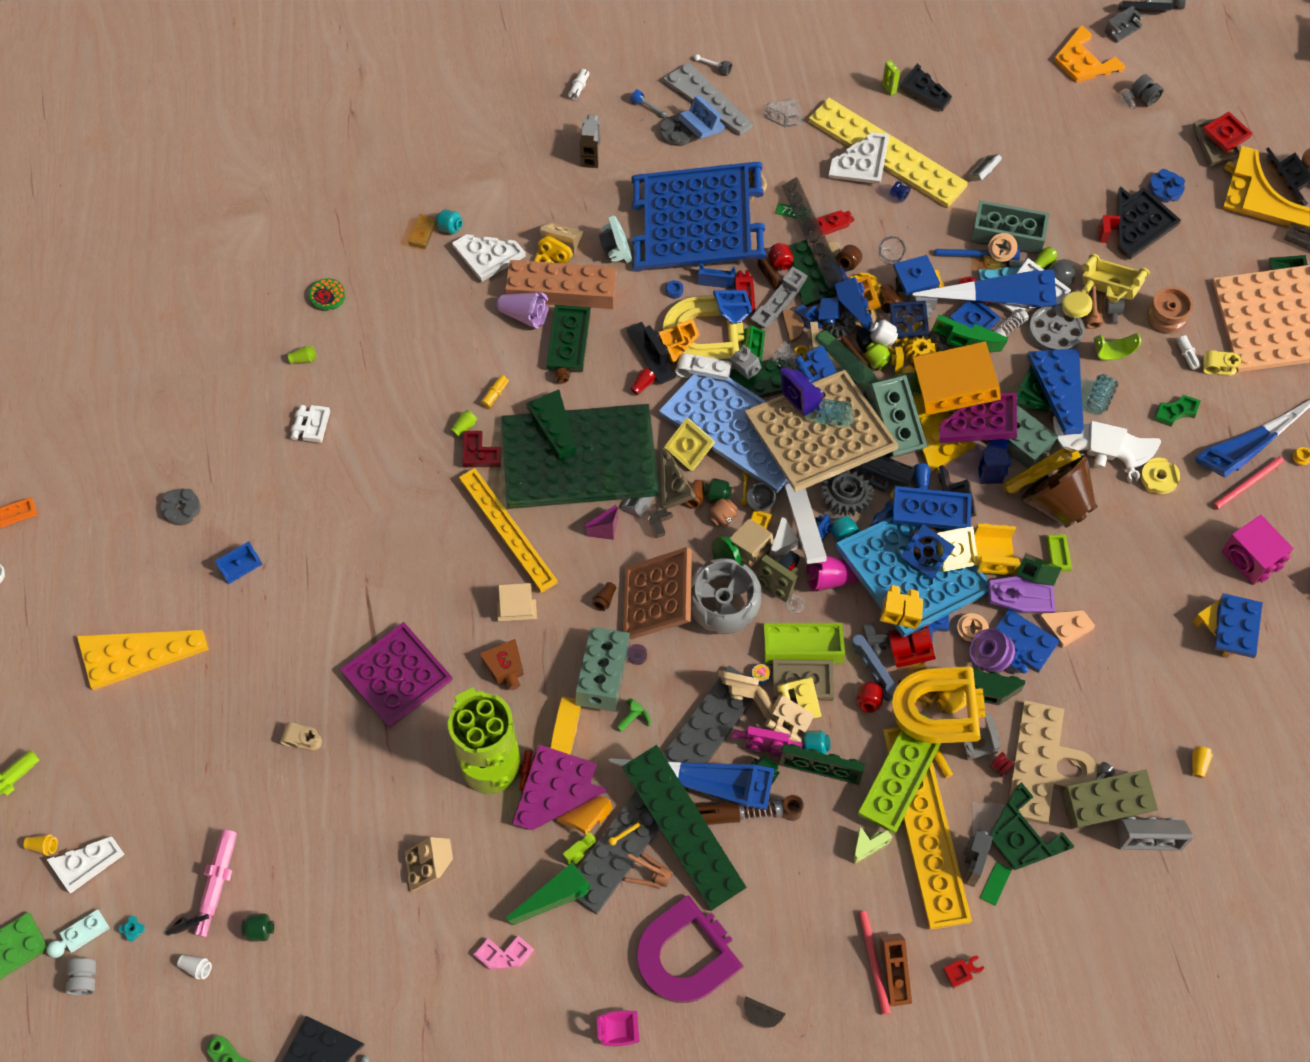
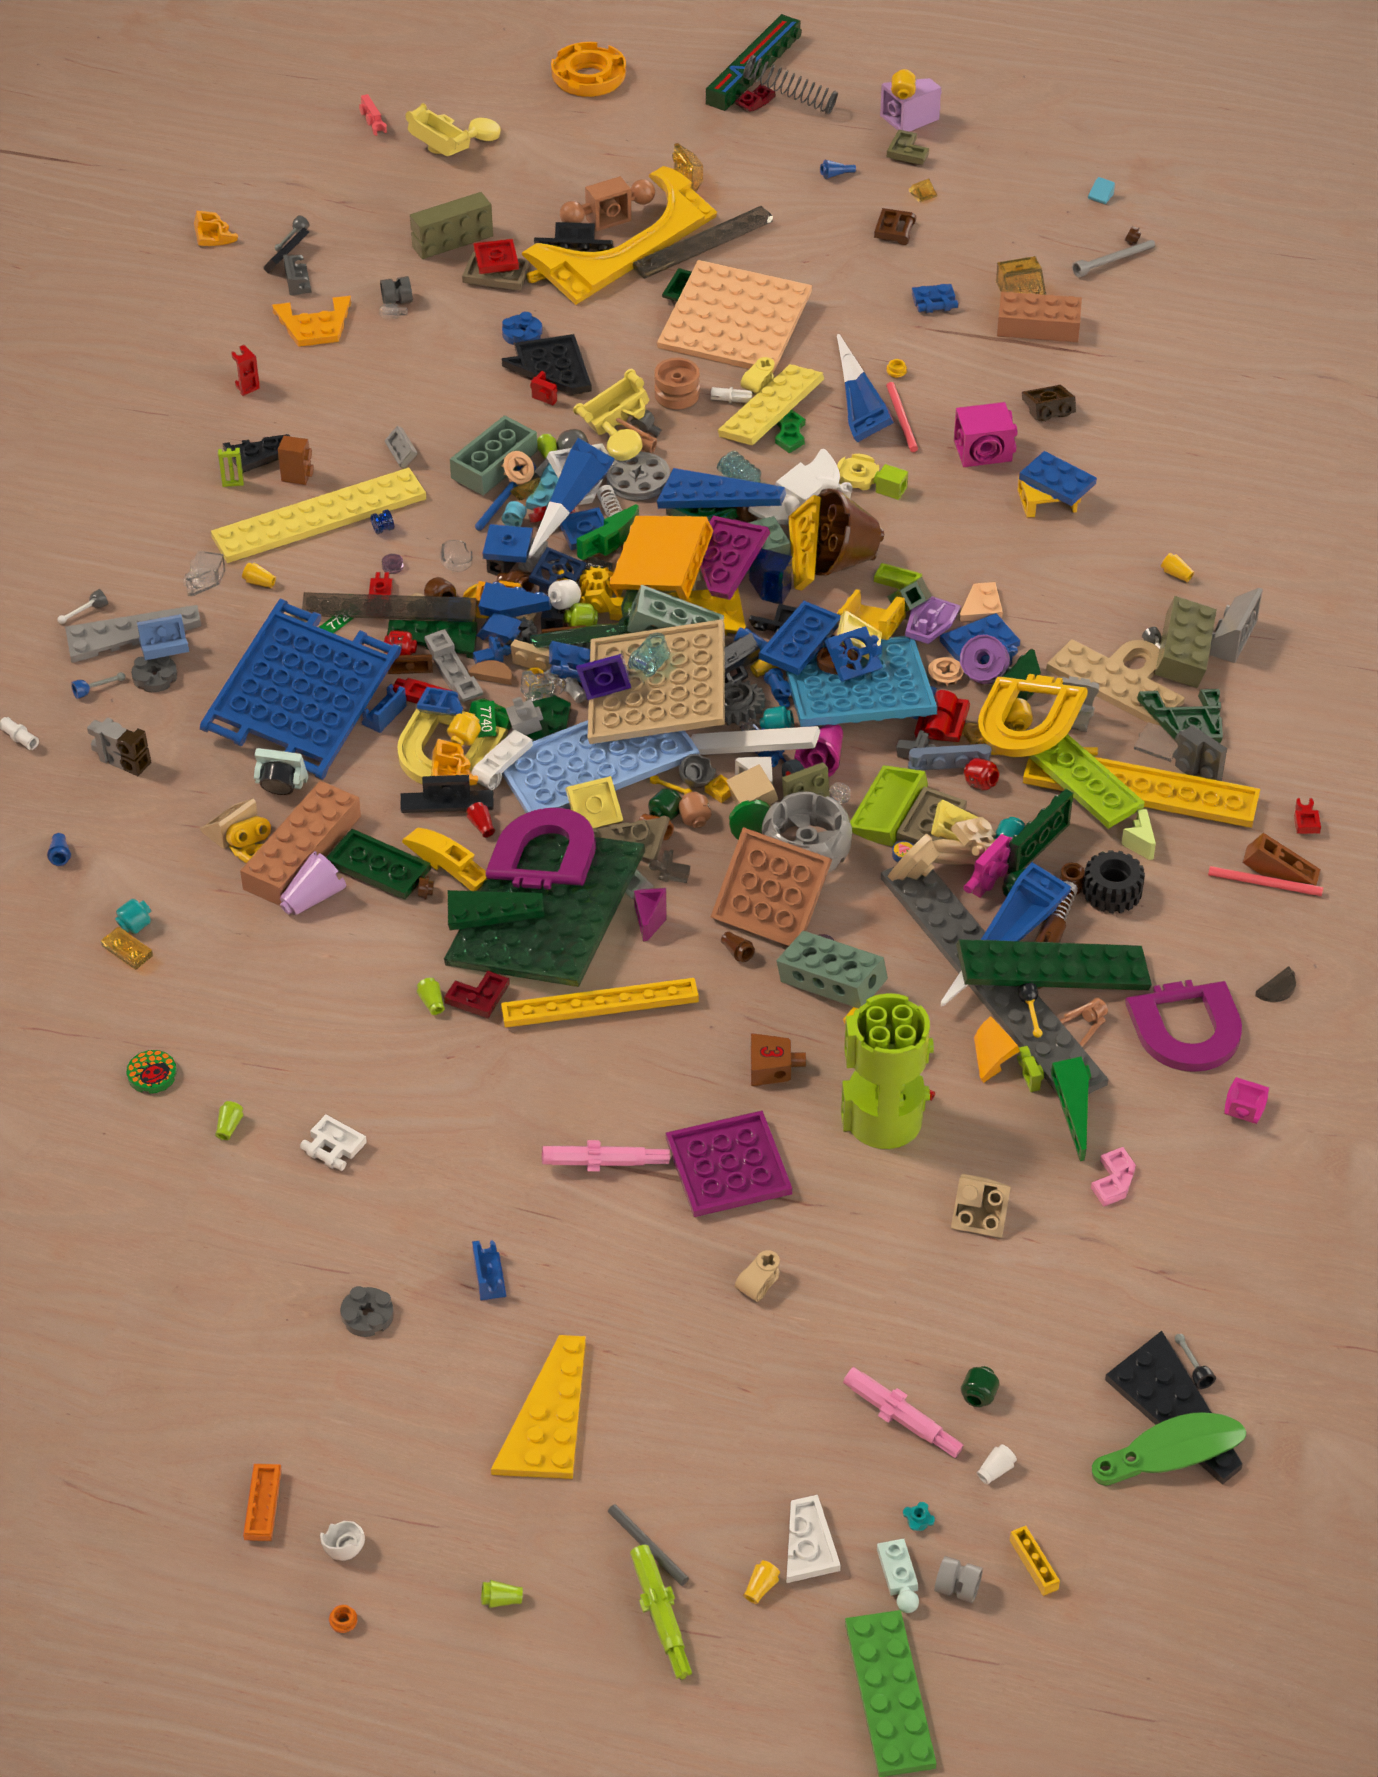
camera: 65 degrees left, 15 degrees down
(51, 759) = (643, 1539): none -> dark grey bar
(120, 1025) = (1034, 1560): none -> yellow piece
(183, 924) = (941, 1456): black hand -> none
(363, 585) = (595, 1155): none -> bright pink piece
(487, 154) = (58, 851): none -> blue cone
(487, 254) = (206, 899): white plate -> none
(494, 392) = (406, 955): yellow axle -> none
(516, 603) = (701, 1020): tan plate -> none
(554, 786) = (955, 1066): magenta wing -> none
(591, 375) = (447, 854): none -> yellow slope
(626, 453) = (535, 823): none -> magenta piece
(637, 710) = (894, 962): bright green plant -> none
(674, 289) = (374, 752): blue tile -> none
(714, 331) = (464, 729): none -> yellow head
(738, 340) = (487, 720): none -> green sticker
(801, 144) = (257, 575): none -> yellow cone
(806, 824) = (1127, 884): none -> black tyre
(862, 160) = (322, 533): white plate -> none
(865, 217) = (392, 563): none -> tile
(902, 608) = (910, 692): yellow hips -> none
(922, 110) = (295, 460): none -> dark orange brick
(959, 267) = (514, 514): none -> medium azure wheel
(994, 40) = (247, 371): none -> red hinge
(996, 883) = (1233, 768): green sticker -> none
(1001, 764) = (1108, 705): dark red wheel -> none
(1116, 348) = (693, 437): lime piece -> none
(1162, 504) = (891, 481): none -> lime brick
(1196, 384) = (770, 404): none -> light yellow plate
(1241, 89) = (451, 225): none -> olive piece

